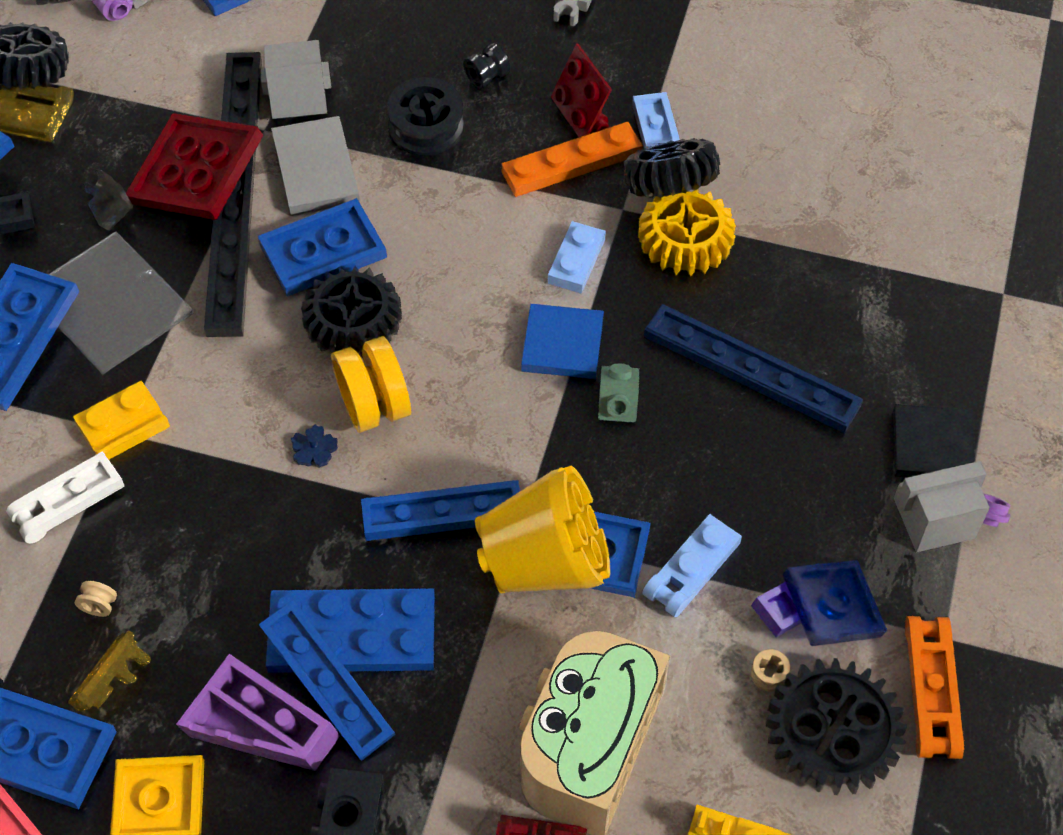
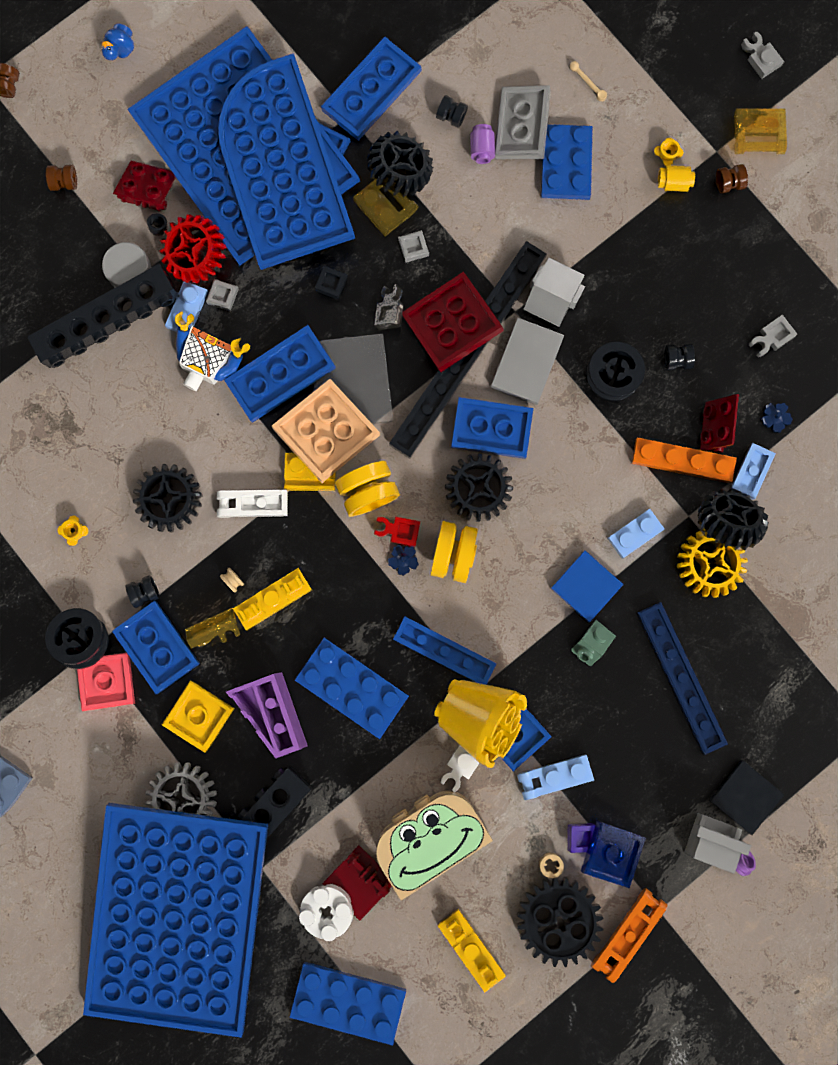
camera: 35 degrees right, 25 degrees up
(94, 131) = (413, 246): none -> light grey tile
(111, 356) = (326, 430): none -> light nougat plate
(169, 592) = (272, 599): none -> yellow plate
(209, 381) = (367, 488): none -> yellow wheel
(287, 411) = (403, 530): none -> red plate
(327, 679) = (317, 714): blue plate -> none
(562, 622) = (461, 764): none -> white plate
(639, 67) = (775, 417): none -> dark blue plant

